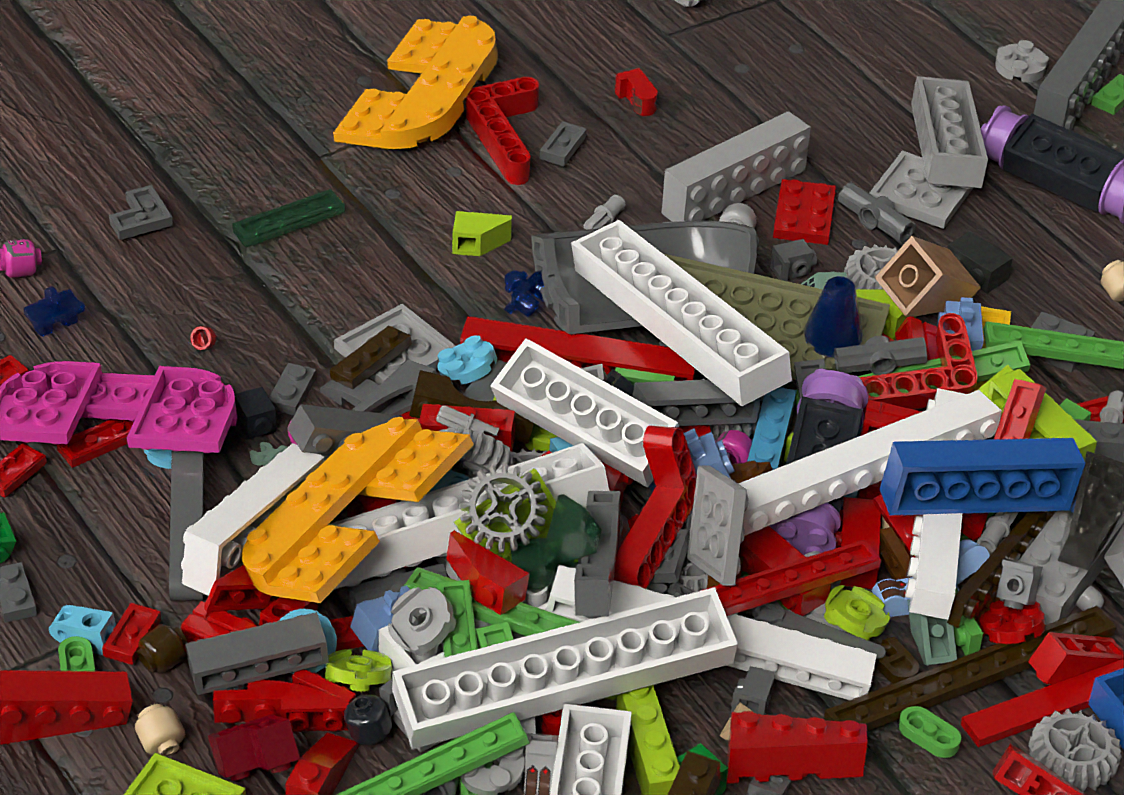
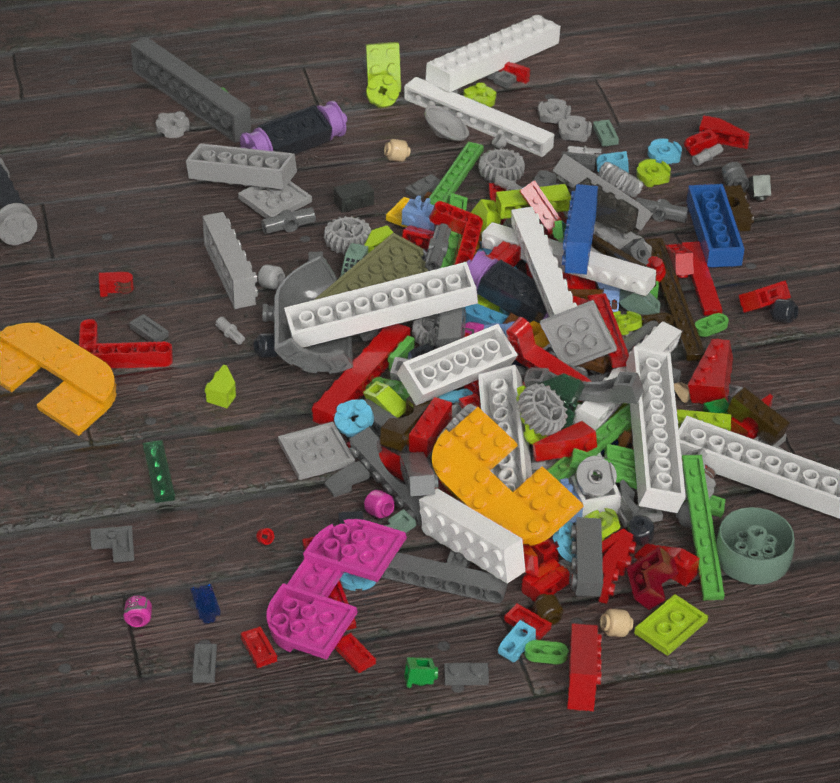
camera: 70 degrees left, 0 degrees up
(292, 388) = (327, 506): dark grey plate -> none
(370, 357) = (329, 459): dark brown plate -> none
(455, 419) = (445, 416): light grey axle -> none
(522, 291) = (291, 381): clear blue hips -> none
(804, 211) = (269, 249): red plate -> none
(835, 318) = (408, 251): clear blue cone -> none
(925, 277) = (380, 213): medium nougat slope -> none
(1076, 748) = (740, 278): light grey gear -> none

